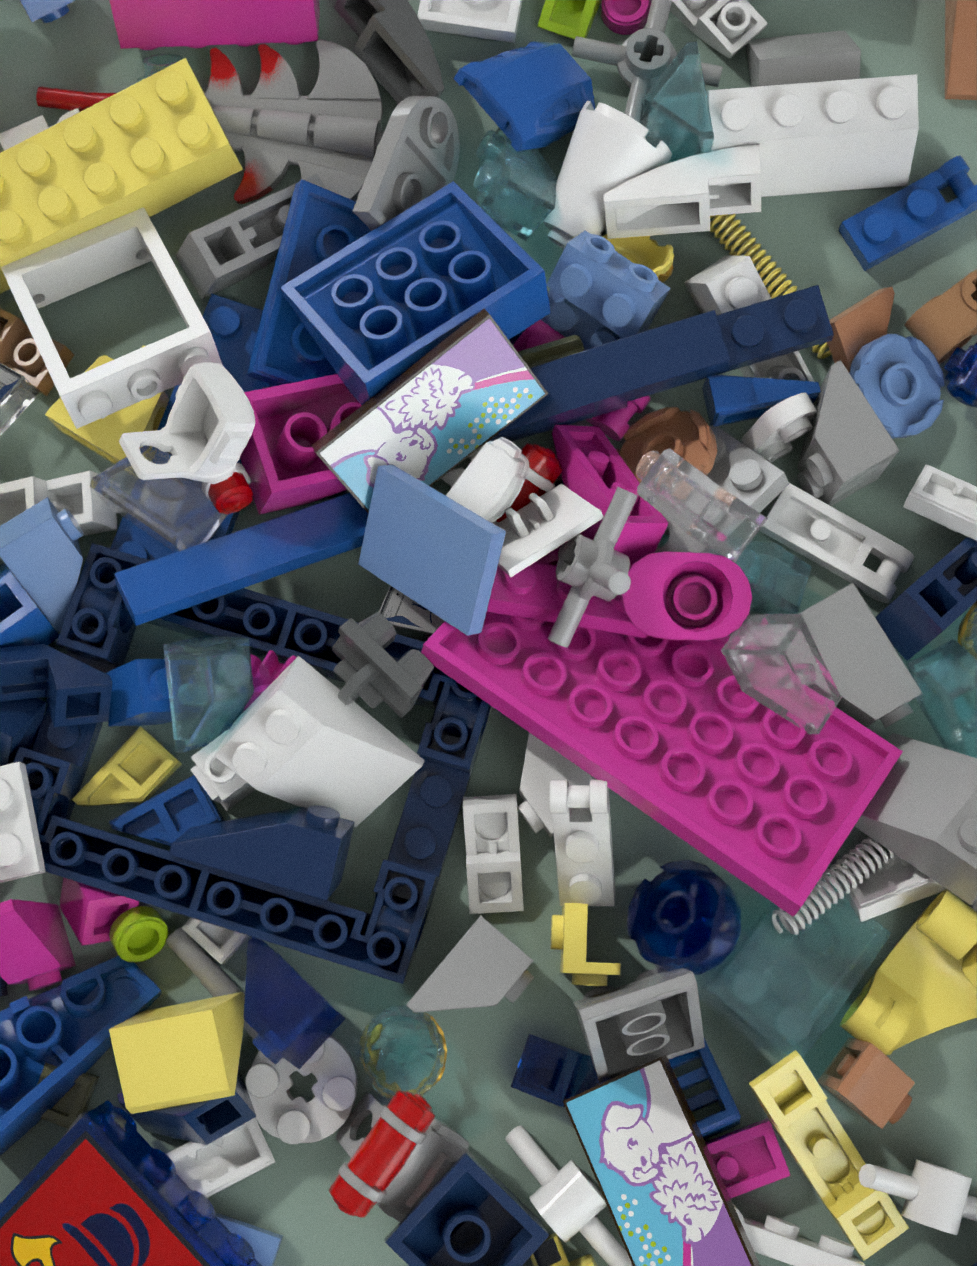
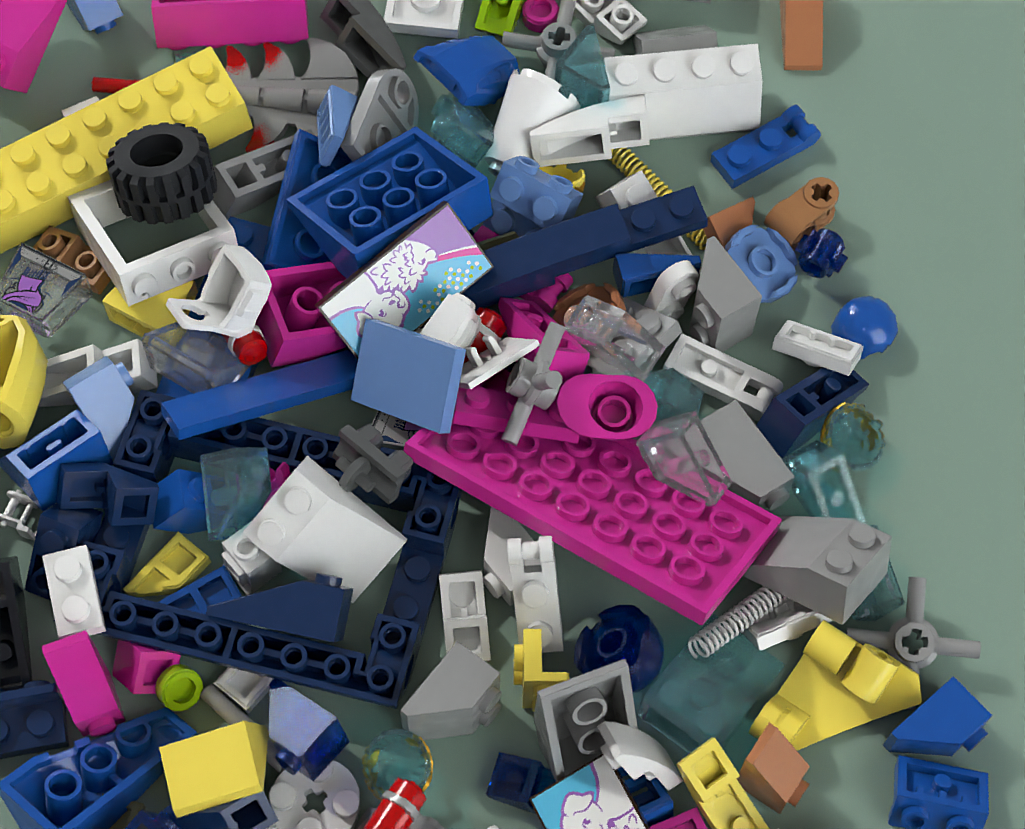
camera: 10 degrees left, 15 degrees down
(117, 247) = (162, 173): none -> black tyre
(345, 171) = (333, 121): none -> medium blue slope
(700, 1062) = (637, 754): none -> white slope

